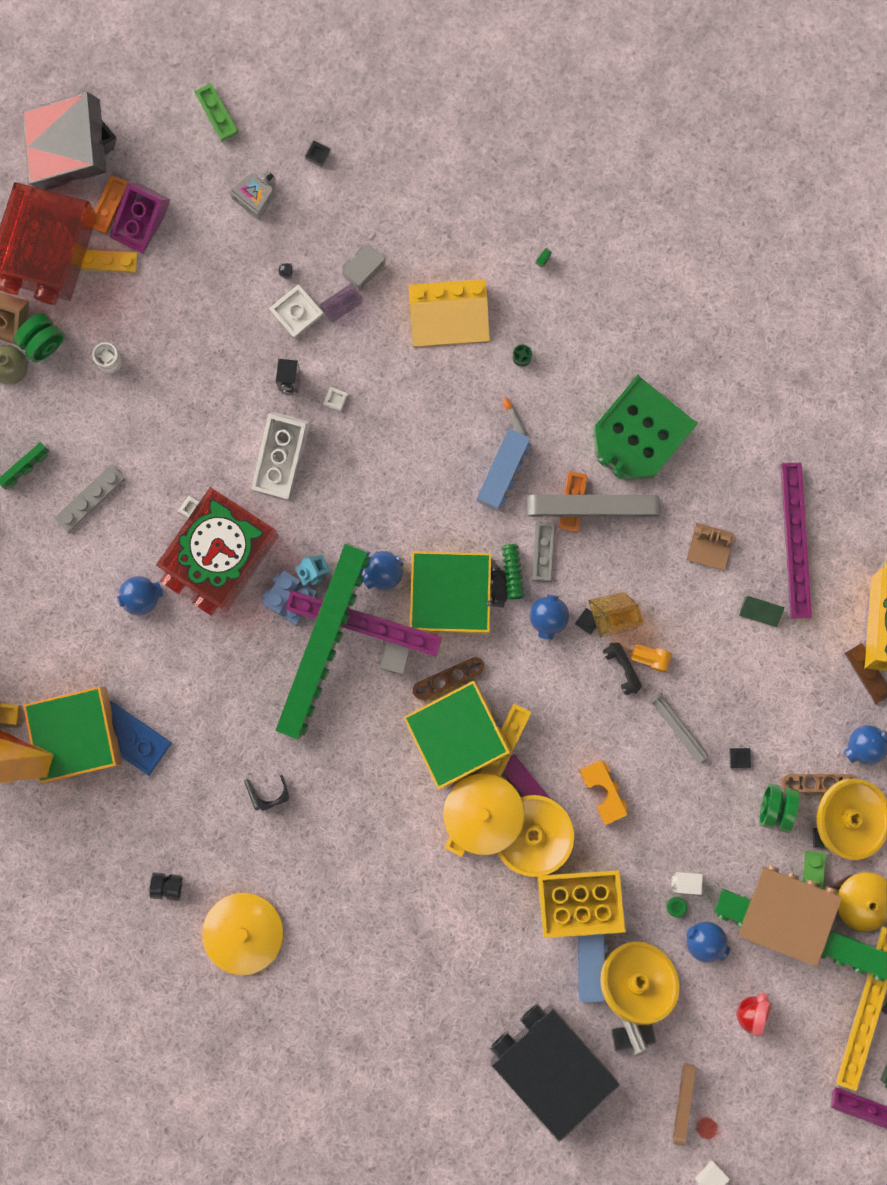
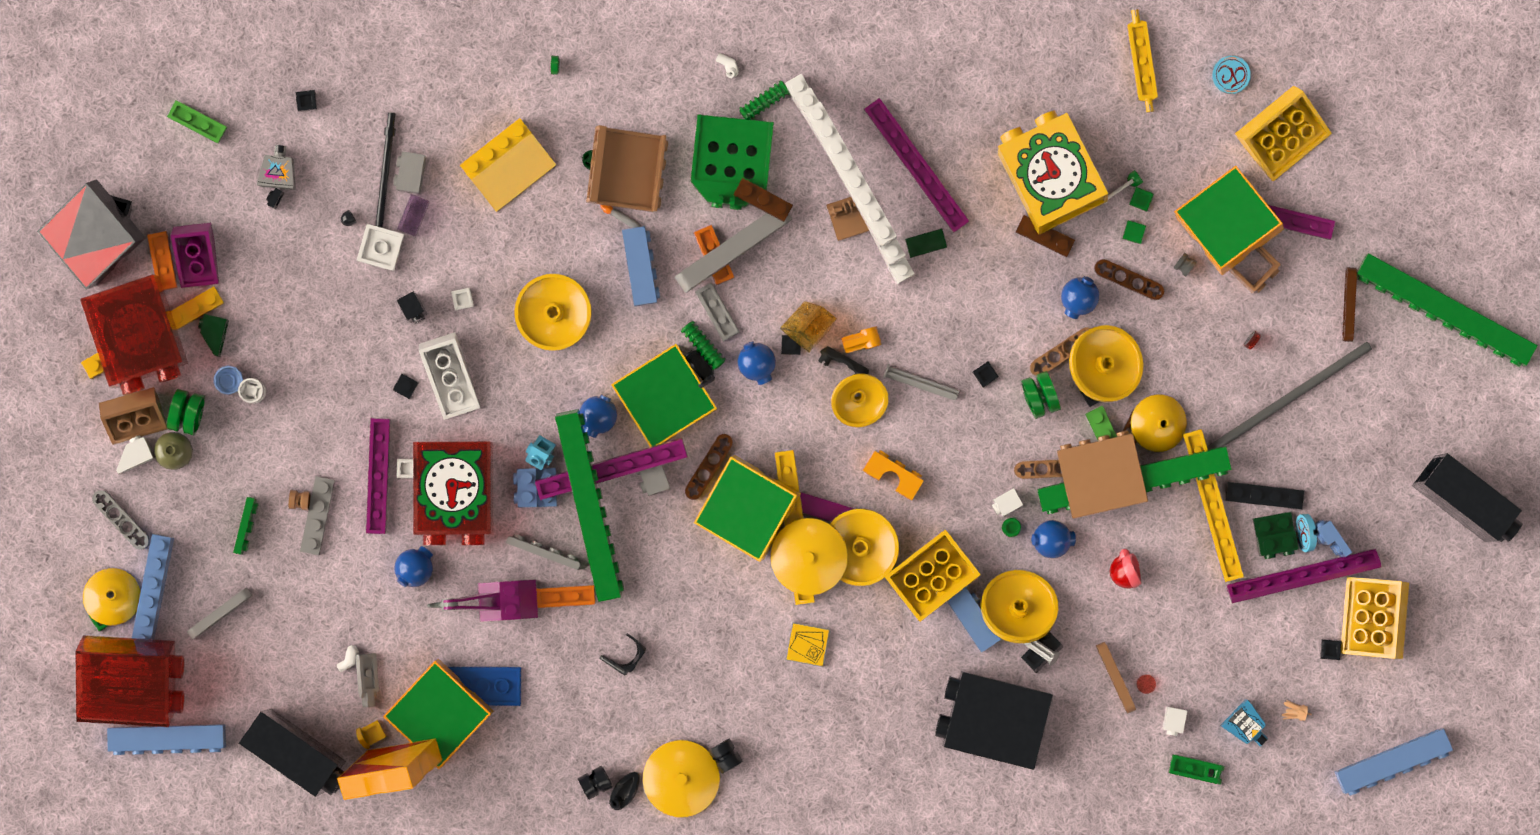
camera: 25 degrees left, 5 degrees up
(32, 638) = (350, 659): none -> white arm
(34, 663) = (367, 678): none -> light grey hinge
(83, 474) = (299, 500): none -> medium nougat wheel
(93, 334) = (227, 379): none -> light blue hair
(109, 290) = (214, 332): none -> dark green slope
(162, 499) = (378, 476): none -> magenta plate
(186, 911) = (624, 791): none -> black arm
(191, 672) = (499, 601): none -> magenta slope
(236, 214) = (274, 198): none -> black plate
(238, 440) = (405, 386): none -> black plate
(251, 707) = (565, 596): none -> orange plate
(254, 648) = (536, 548): none -> light grey plate
(294, 940) = (725, 756): none -> black wheel
(368, 224) = (389, 133): none -> black bar
(404, 458) = (553, 312): none -> yellow dish
(431, 890) = (807, 644): none -> yellow tile
(546, 381) = (626, 169): none -> medium nougat panel
(617, 717) = (866, 407): none -> yellow dish
(646, 481) = (763, 200): none -> reddish brown plate
(691, 353) = (730, 65): none -> white arm
(701, 401) = (764, 100): none -> green piece
(736, 558) = (852, 178): none -> white arch
(742, 881) = (1051, 469): none -> medium nougat beam

